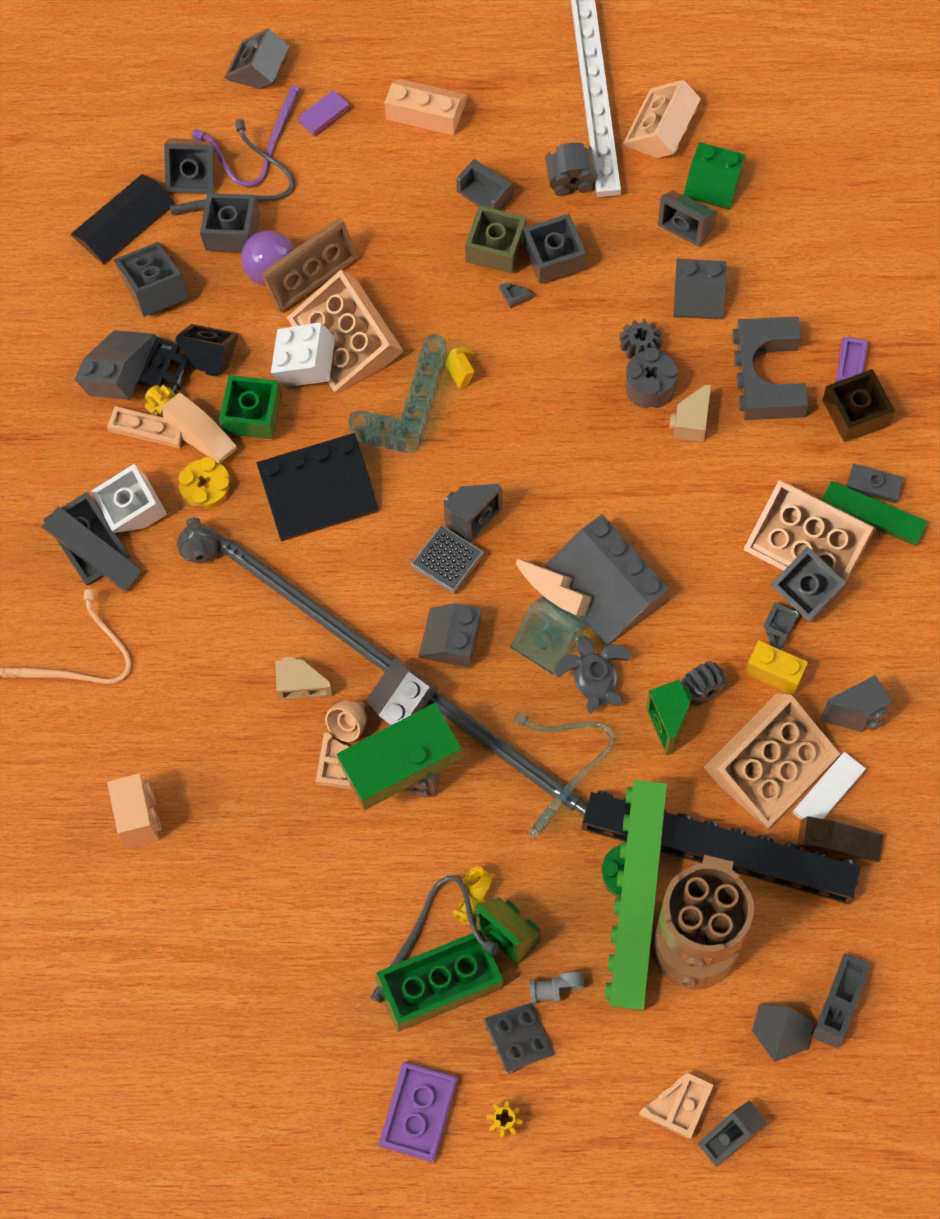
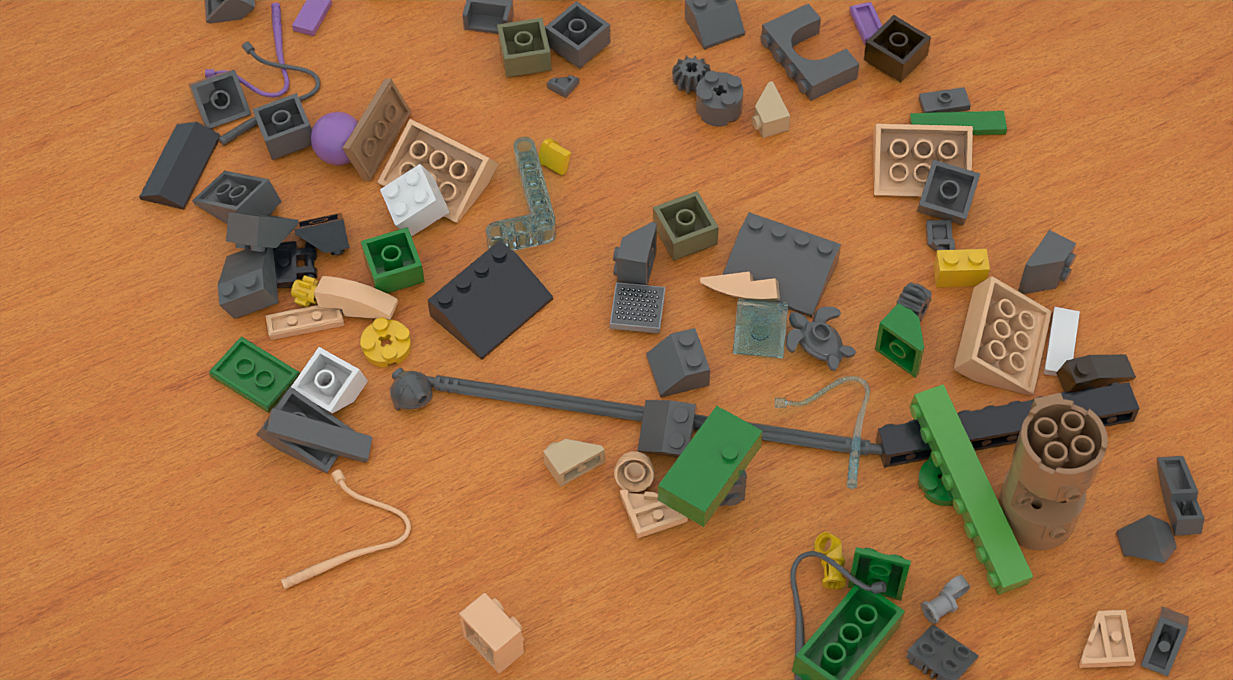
camera: 30 degrees left, 10 degrees down
(75, 458) = (254, 374): none -> green tile
(147, 320) = (258, 230): none -> dark grey slope
(537, 498) = (685, 225): none -> olive brick

